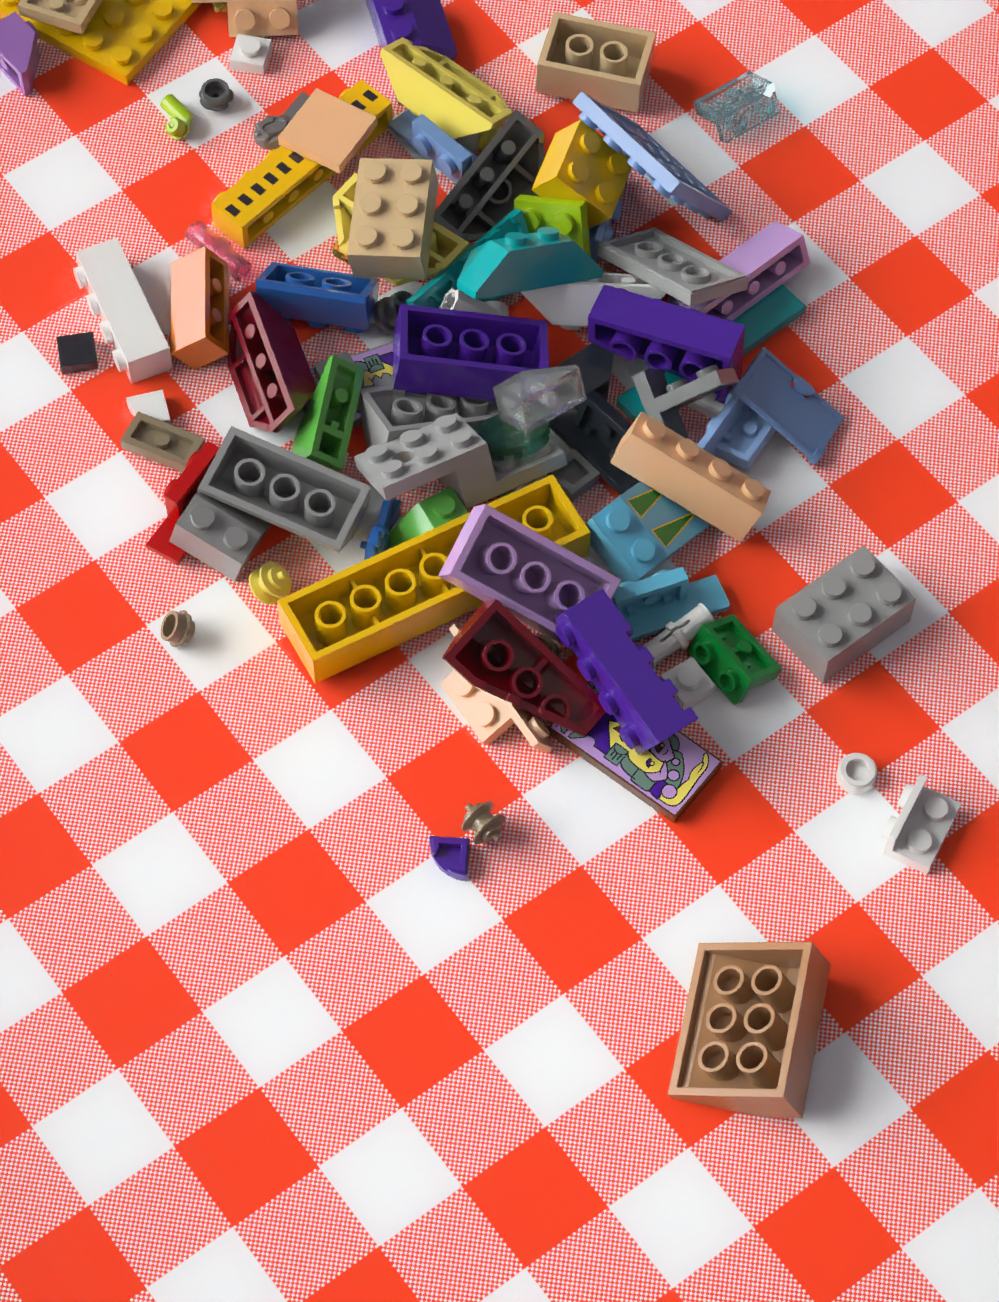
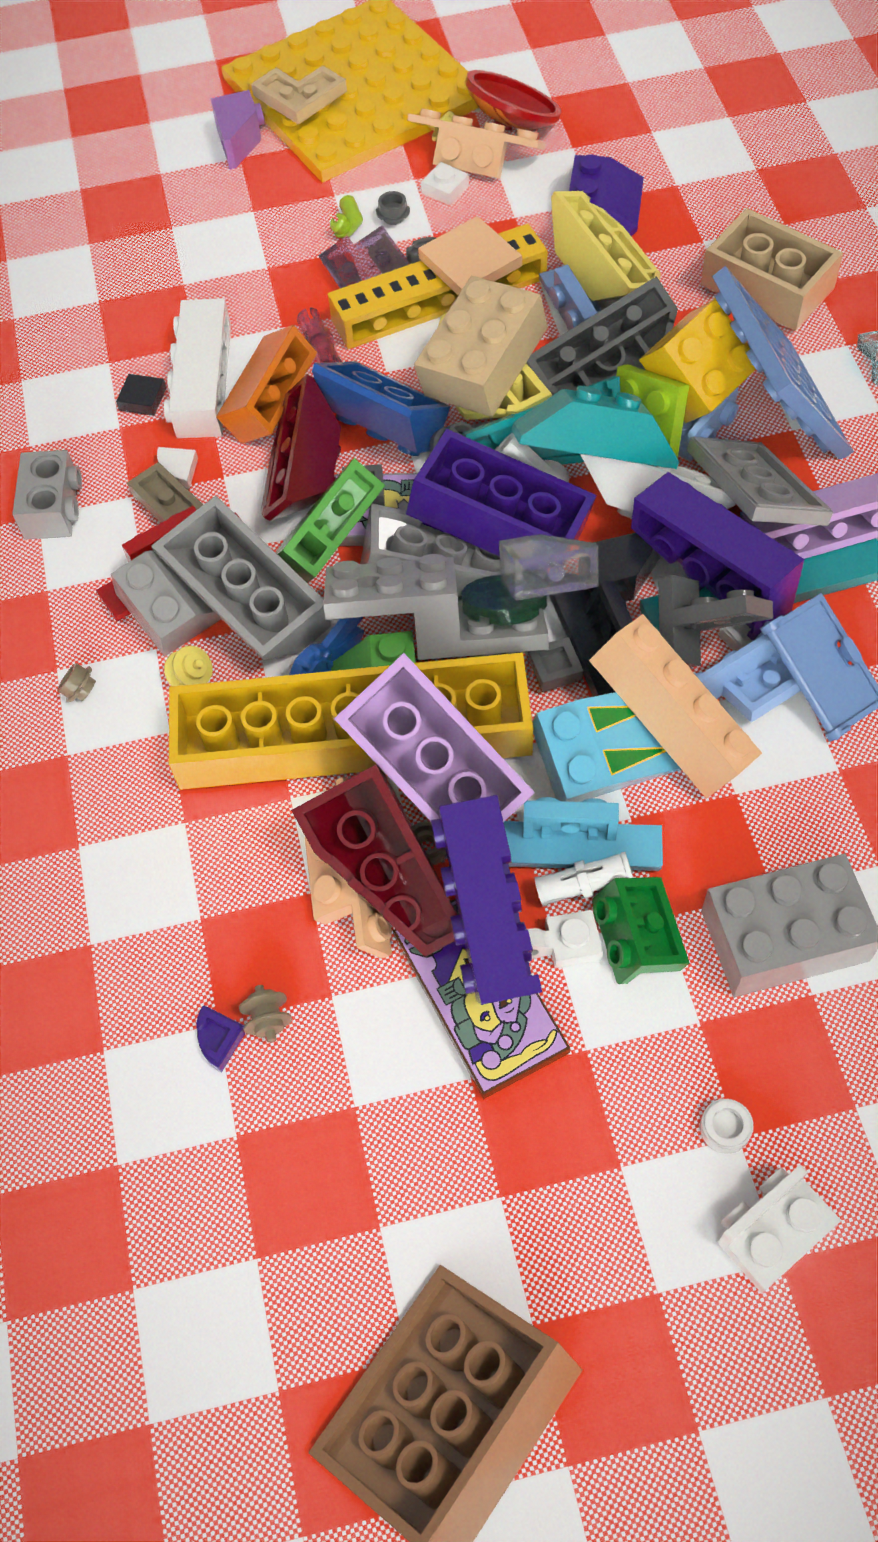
camera: 30 degrees right, 0 degrees up
(46, 475) = (46, 494): none -> light grey brick
(218, 158) = (363, 260): none -> slope

